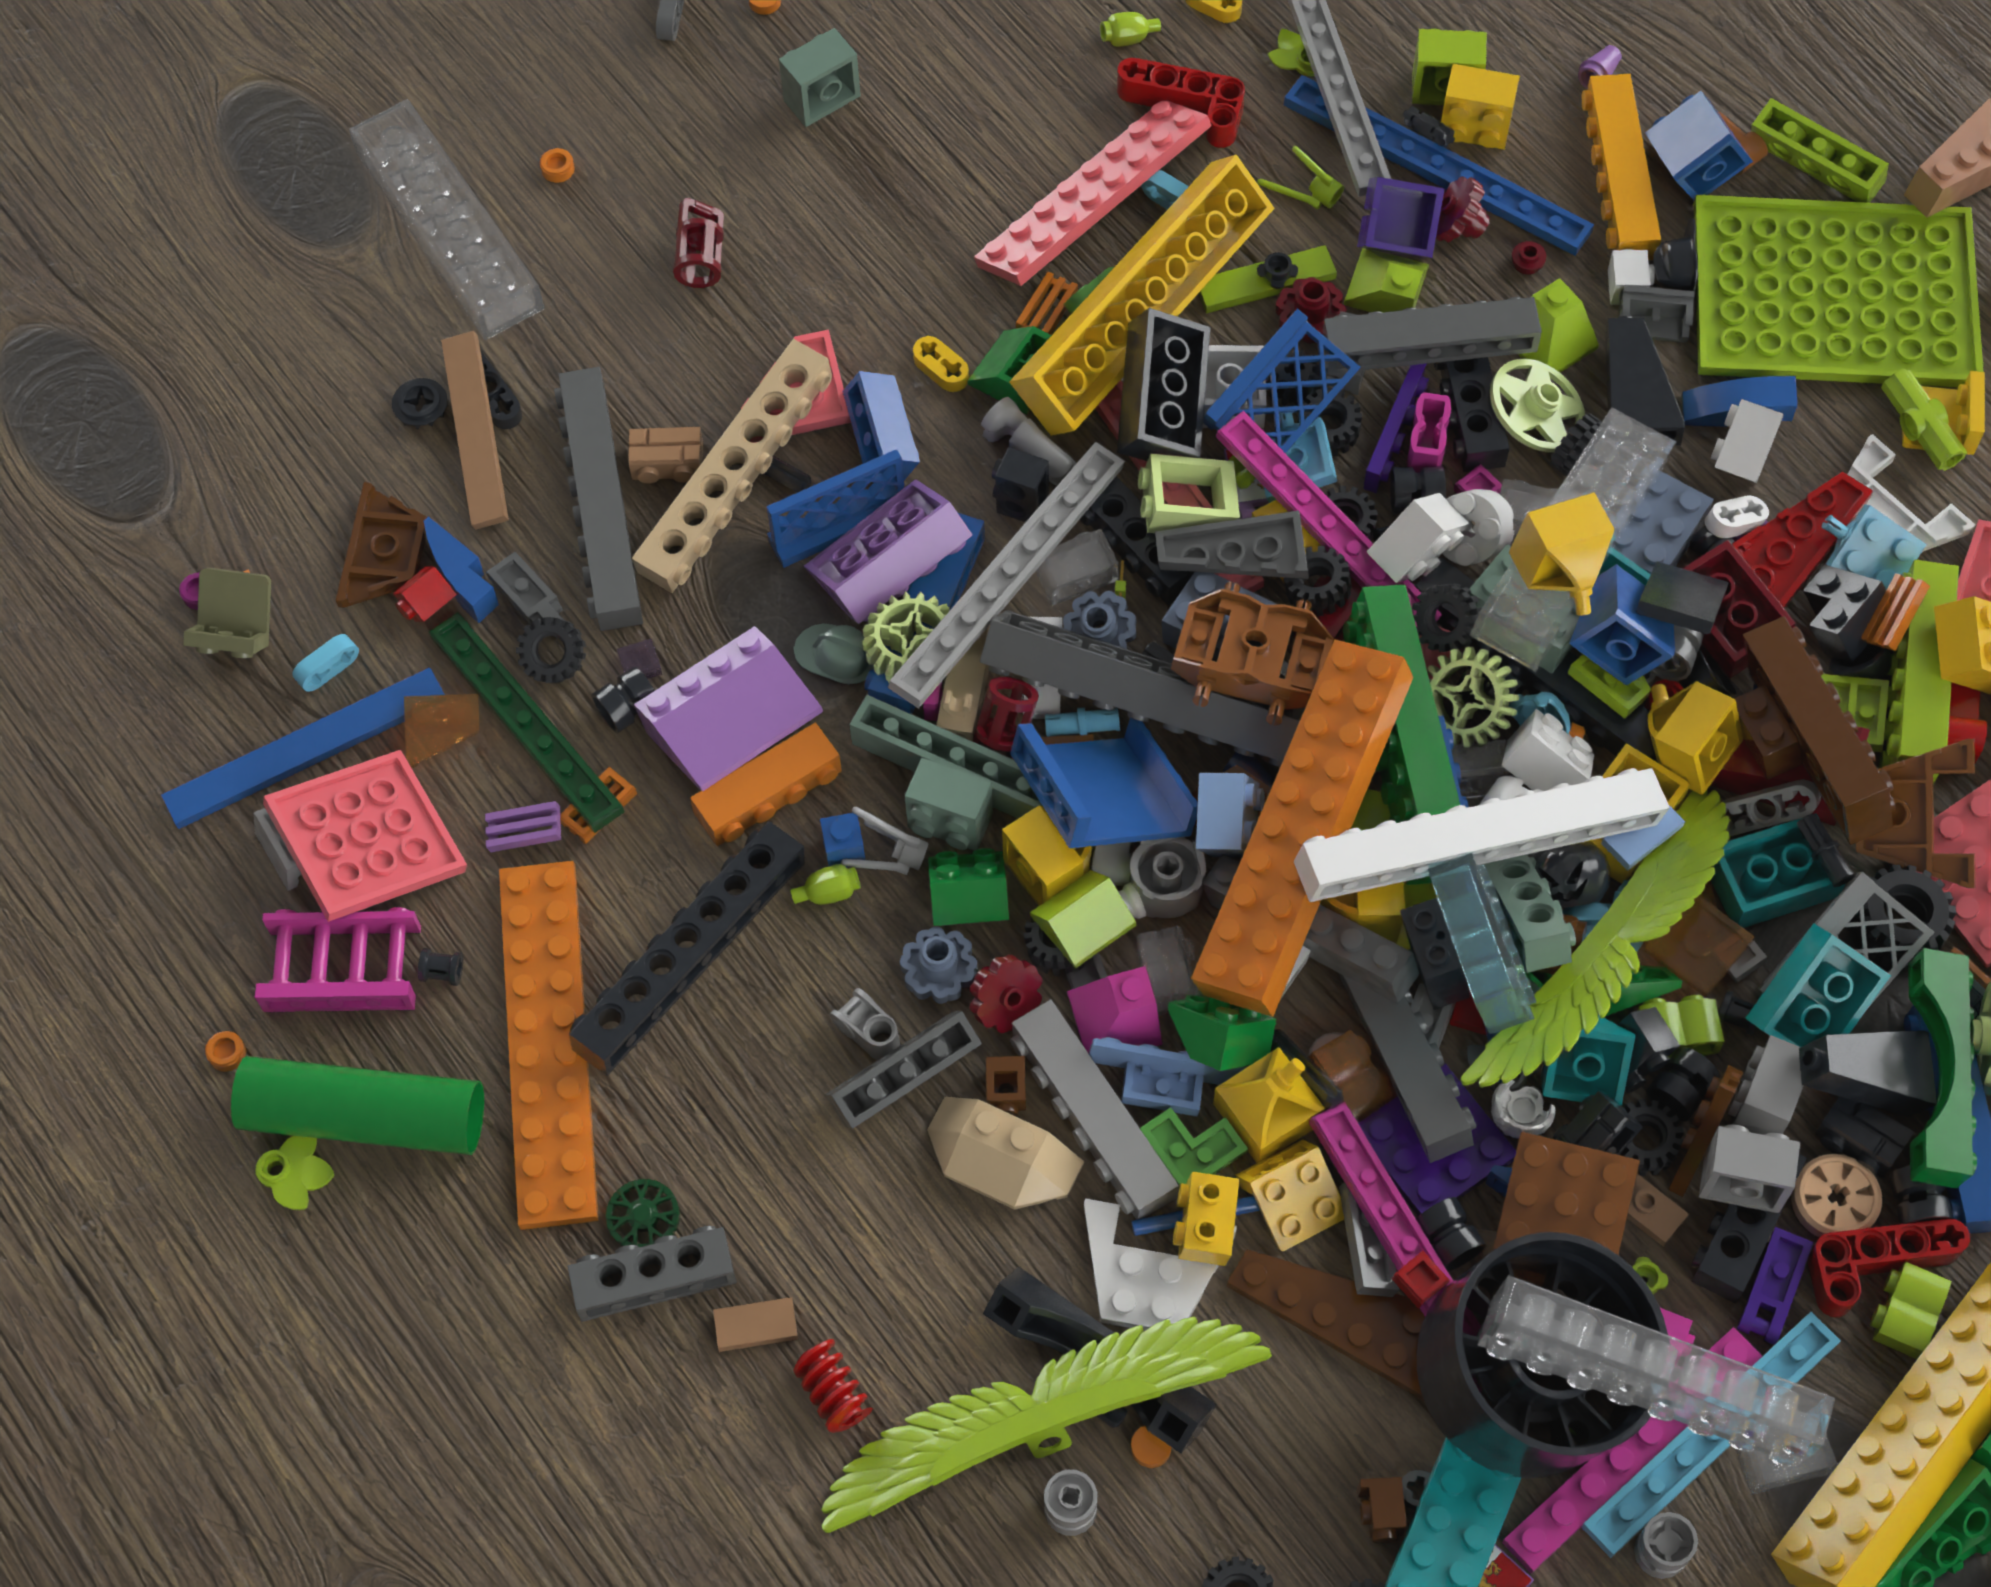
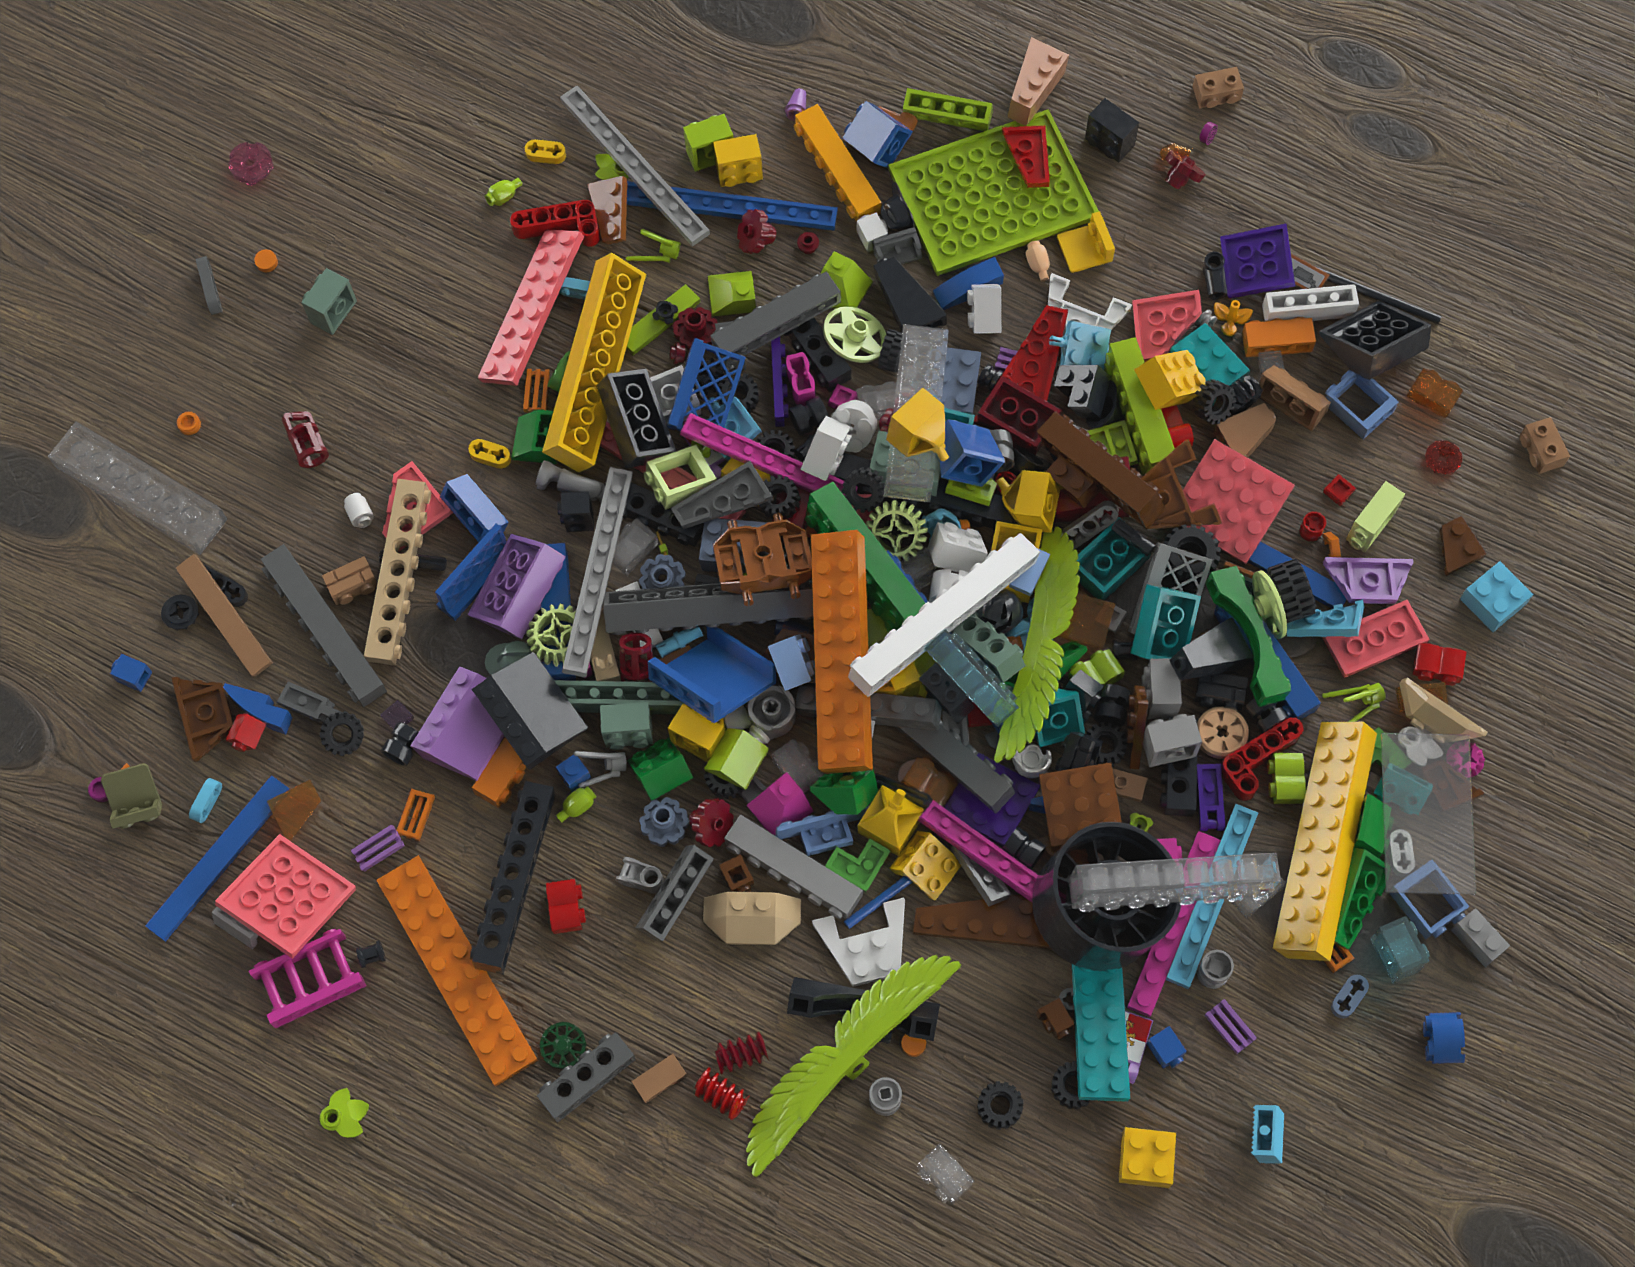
camera: 25 degrees left, 5 degrees up
(225, 1051) = (265, 1062): orange tile -> none
(315, 453) = (130, 672): none -> blue brick
(357, 1105) = (364, 1059): green piece -> none
(527, 722) = (347, 783): dark green tile -> none
(723, 366) = (358, 510): none -> white brick
(739, 1020) = (564, 906): none -> red brick
(820, 723) = (530, 709): none -> slope
(888, 1340) = (741, 1052): none -> dark red piece
(1207, 1218) = (887, 901): yellow brick -> none
(1267, 103) = (610, 207): none -> wing
(1267, 330) = (677, 353): none -> dark red plate
(1401, 217) = (724, 250): dark purple piece -> none
(1420, 1279) = (1020, 882): red tile -> none
(1428, 126) = (713, 183): black axle -> none
(1682, 598) = (993, 424): black tile -> none
(1744, 516) = (1001, 359): white beam -> none
(1861, 408) = (1038, 259): none -> light nougat plant
(1891, 610) = (1109, 379): orange tile -> none
(1914, 255) = (1030, 153): none -> red wing
(1924, 419) = (1077, 253): lime piece -> none

